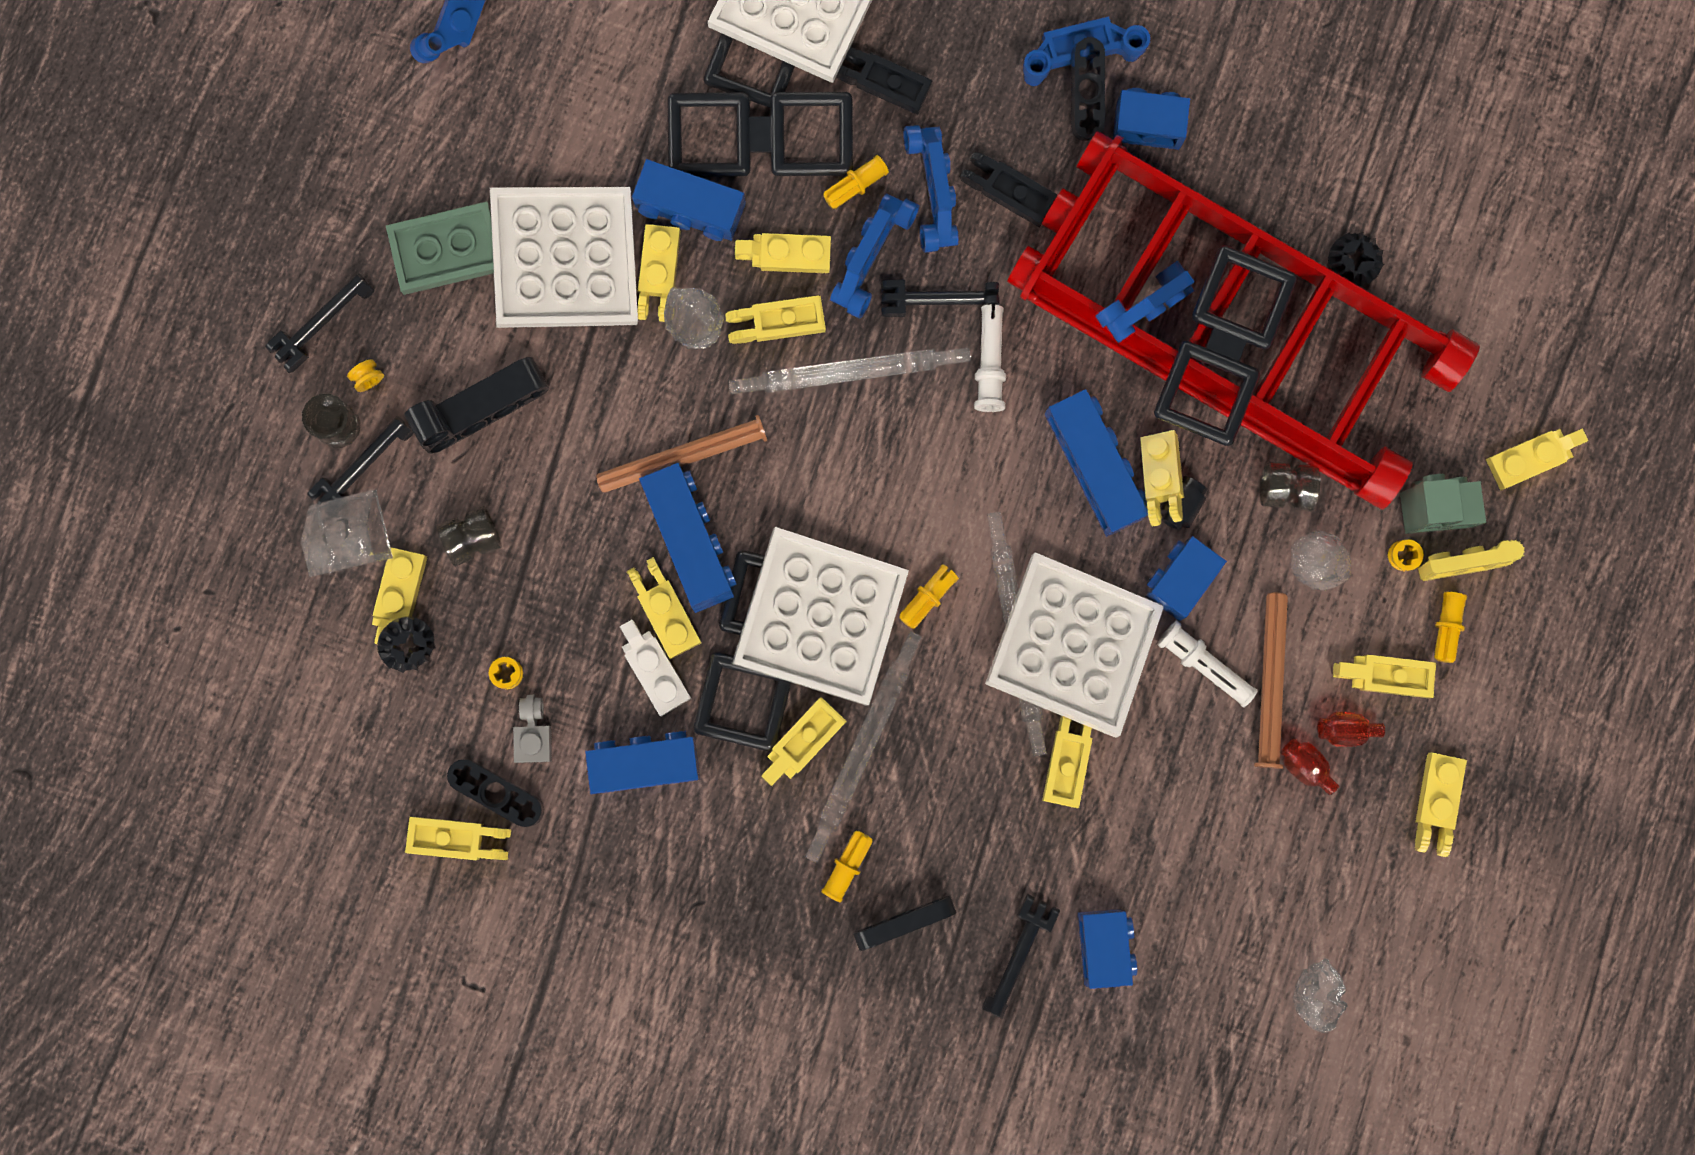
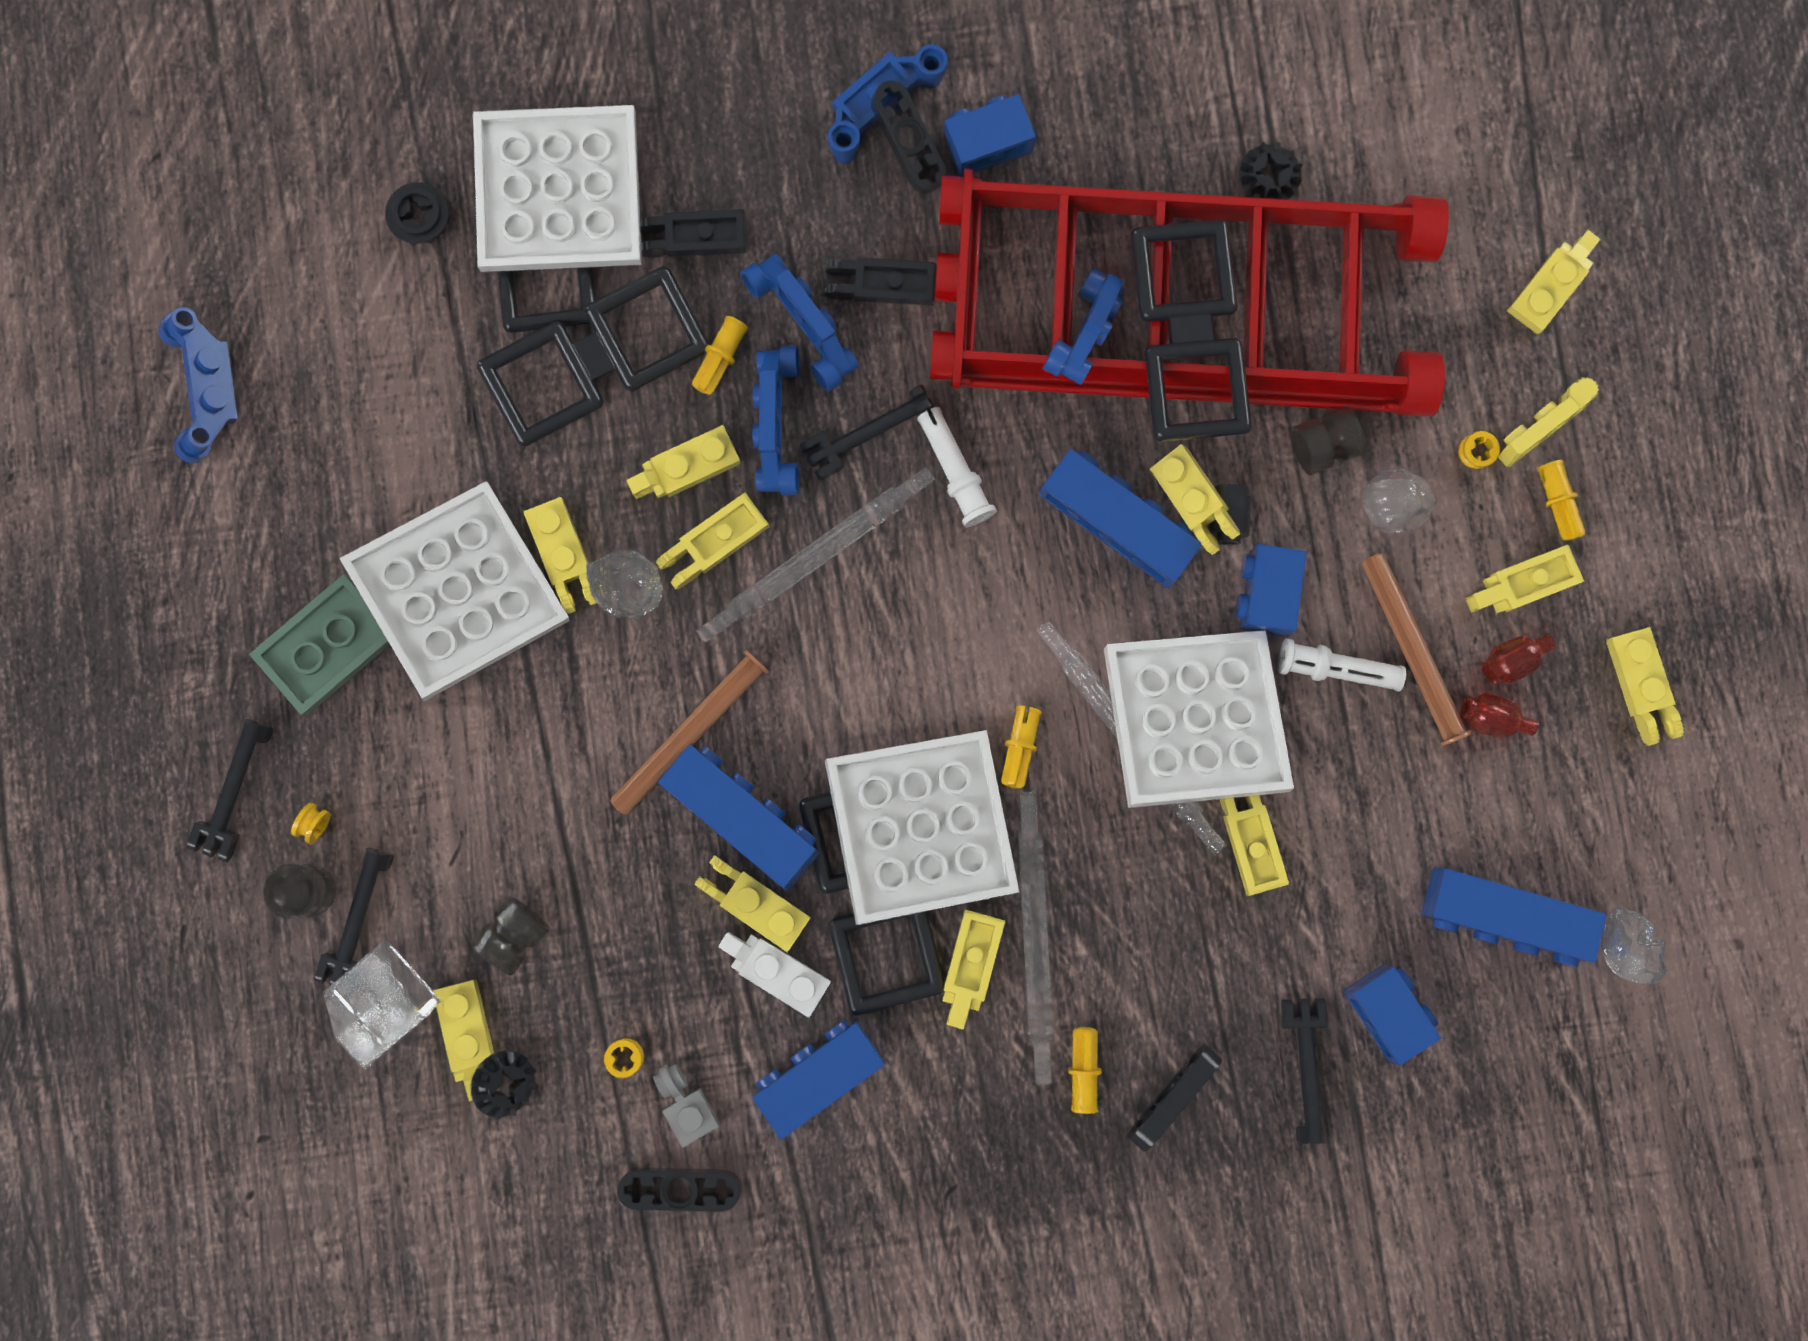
camera: 25 degrees left, 0 degrees up
(452, 839) = (661, 1262): light yellow hinge -> none
(477, 406) = (445, 795): black beam -> none
(688, 201) = (555, 464): blue brick -> none
(1240, 923) = (1514, 916): none -> blue brick
(1442, 504) = (1490, 379): sand green brick -> none

